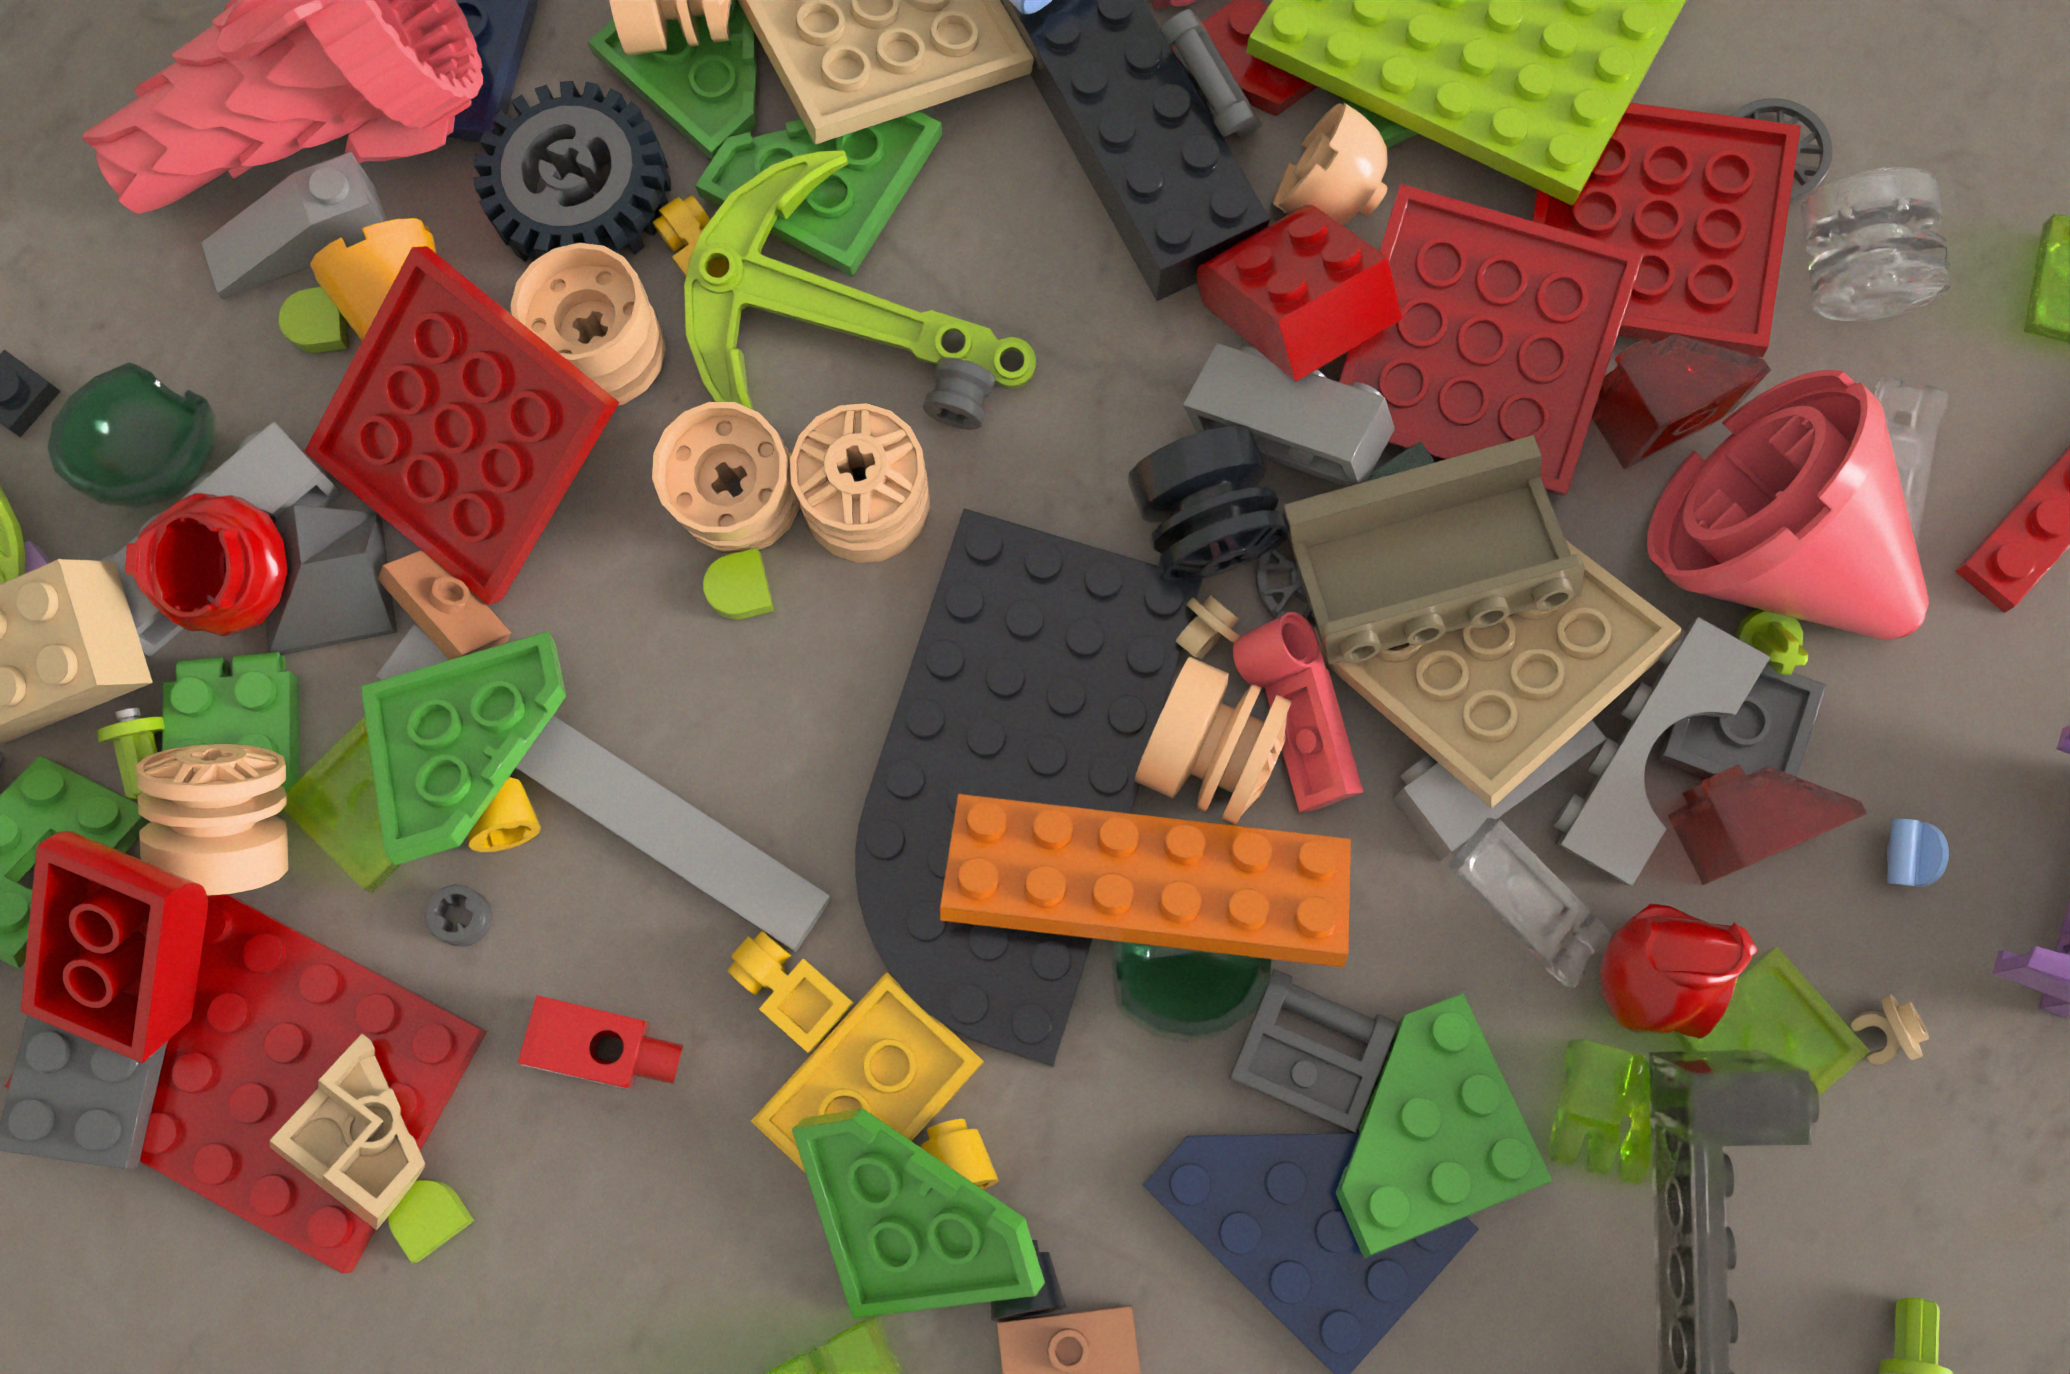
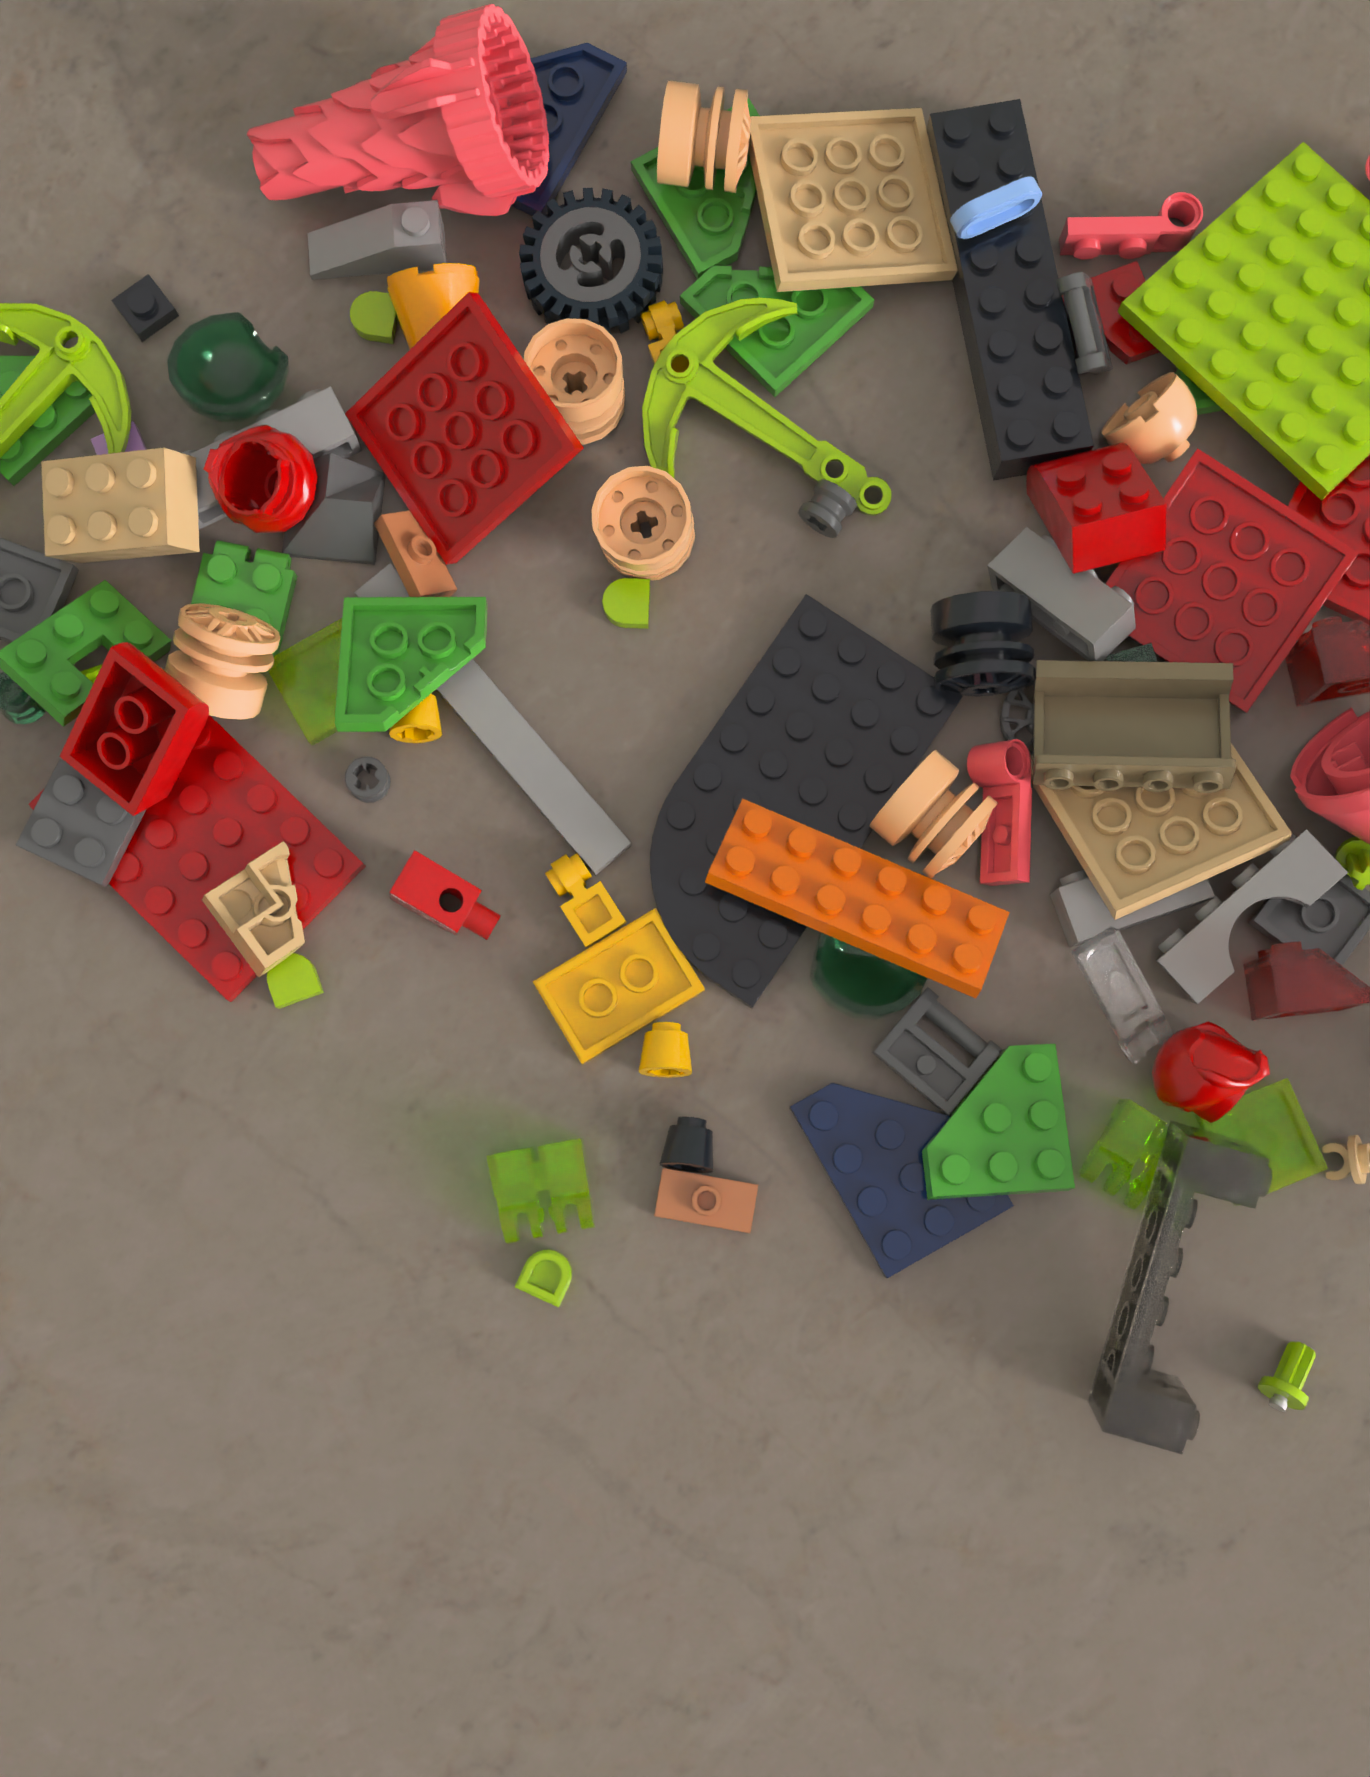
camera: 15 degrees right, 5 degrees up
(132, 742) = (172, 595): lime piece -> none
(869, 516) = (735, 581): light nougat wheel -> none
(907, 1224) = (621, 1080): bright green plate -> none
(1206, 629) = (954, 733): tan plate -> none

